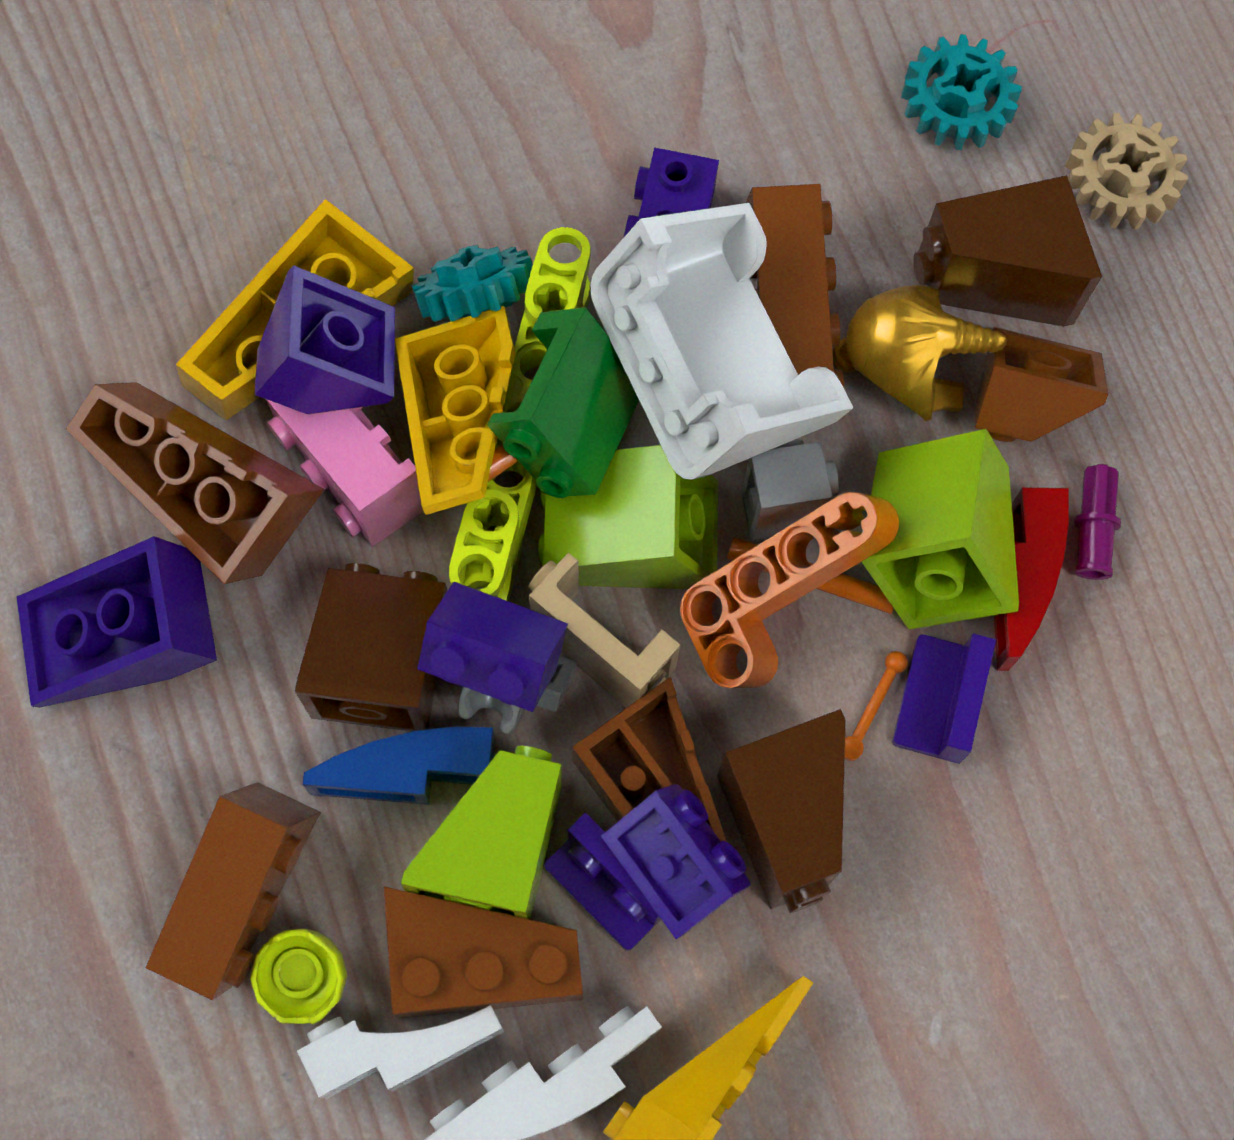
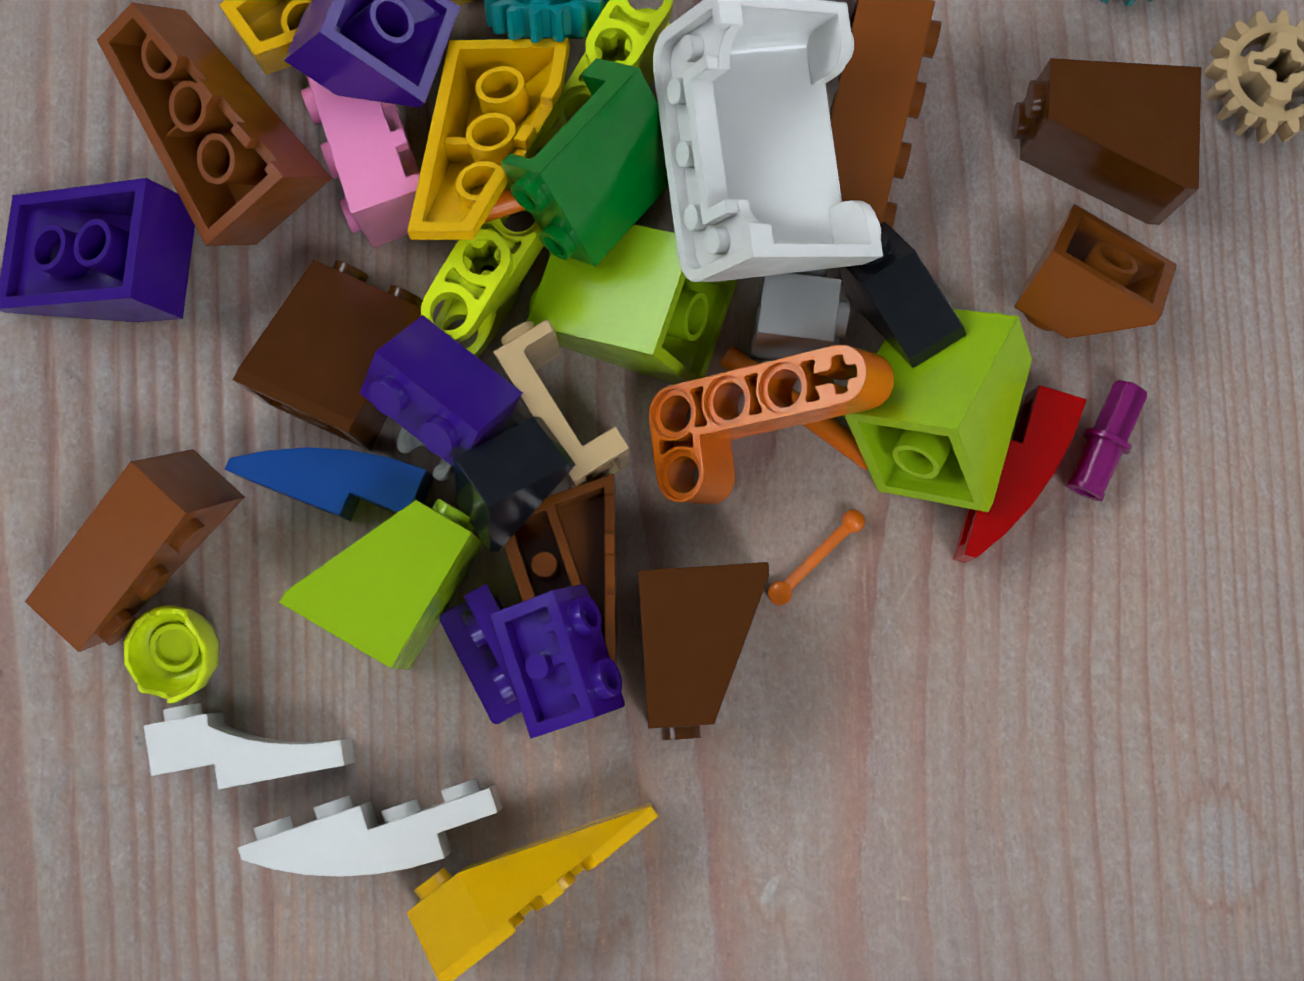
camera: 20 degrees right, 10 degrees up
(470, 958) = (334, 691): dark orange wedge -> none
(579, 707) = (509, 479): none -> black slope
(878, 448) = (903, 300): none -> black slope
(899, 342) = (970, 189): pearl gold piece -> none
(943, 696) = (888, 570): dark purple panel -> none

